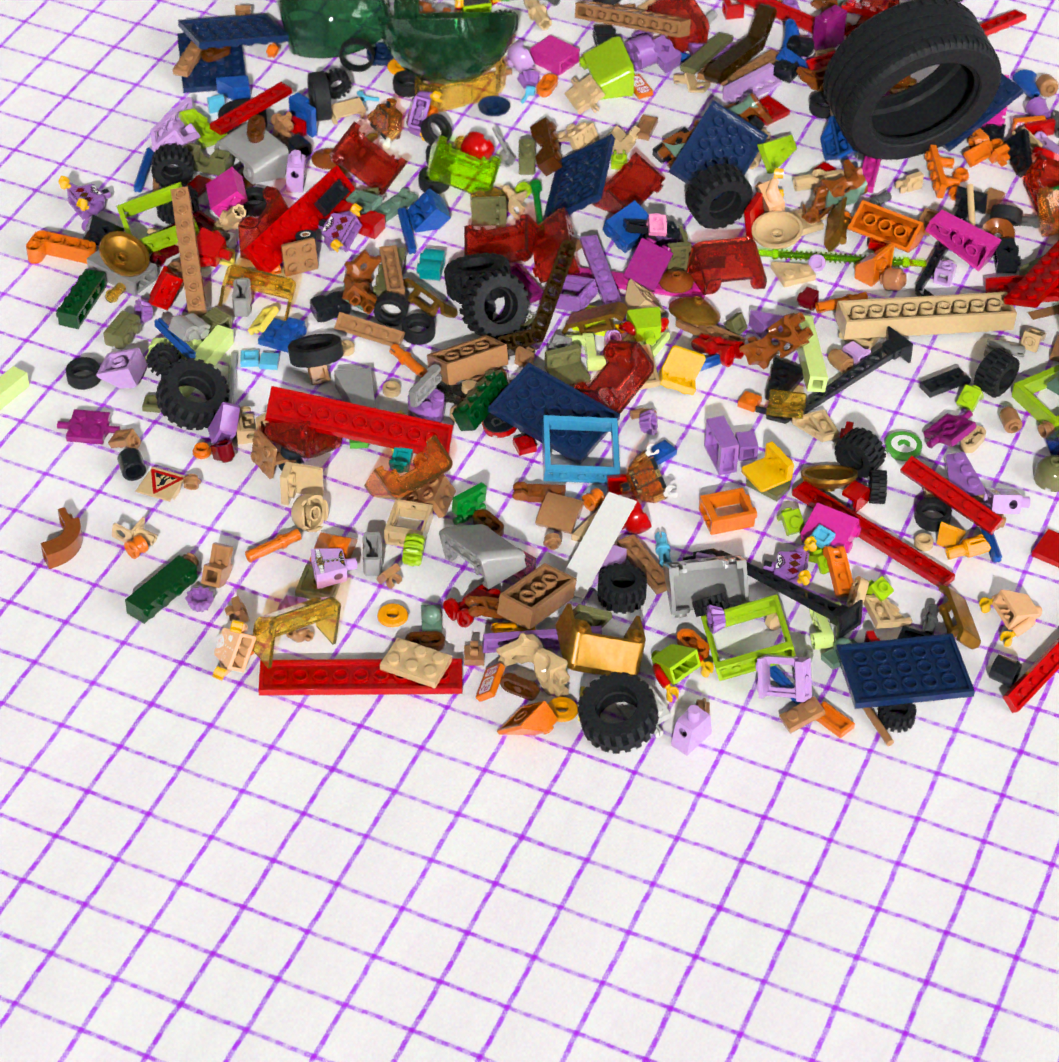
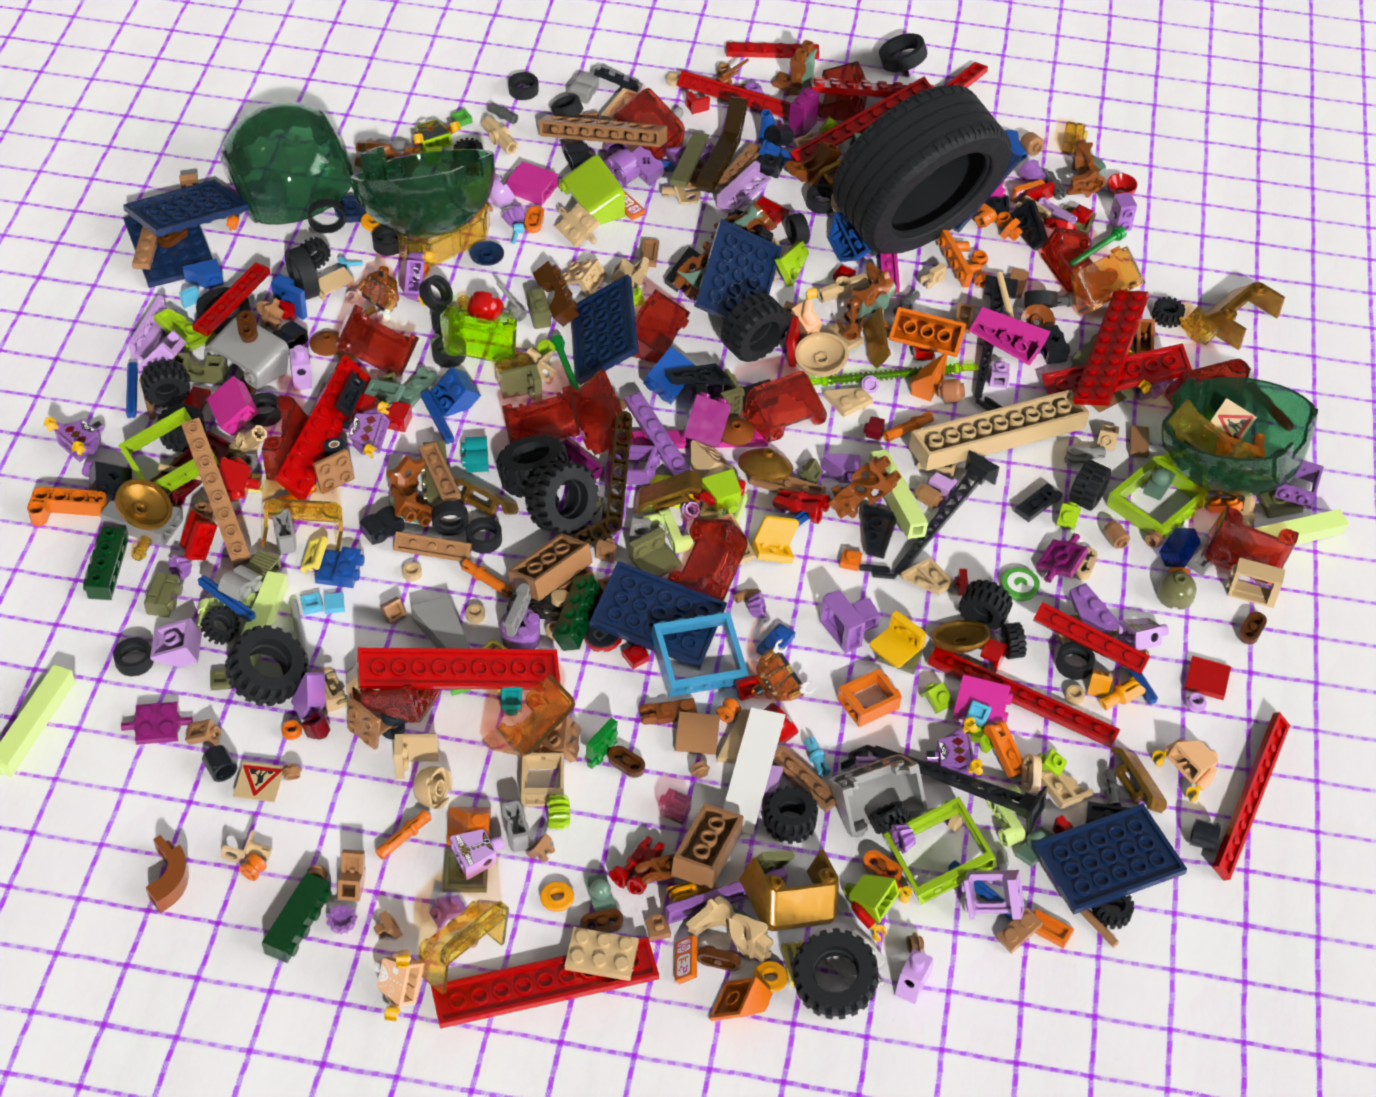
camera: 15 degrees left, 5 degrees up
(315, 350) = (386, 595): black tyre -> none
(483, 549) = (636, 801): light grey windscreen -> none
(657, 224) = (705, 374): bright pink bracket -> none
(786, 404) = (892, 559): clear yellow bracket -> none
(790, 123) = (797, 228): none -> black tyre
(978, 153) = (990, 231): orange tile -> none
(1038, 566) = (1196, 698): none -> lavender plate

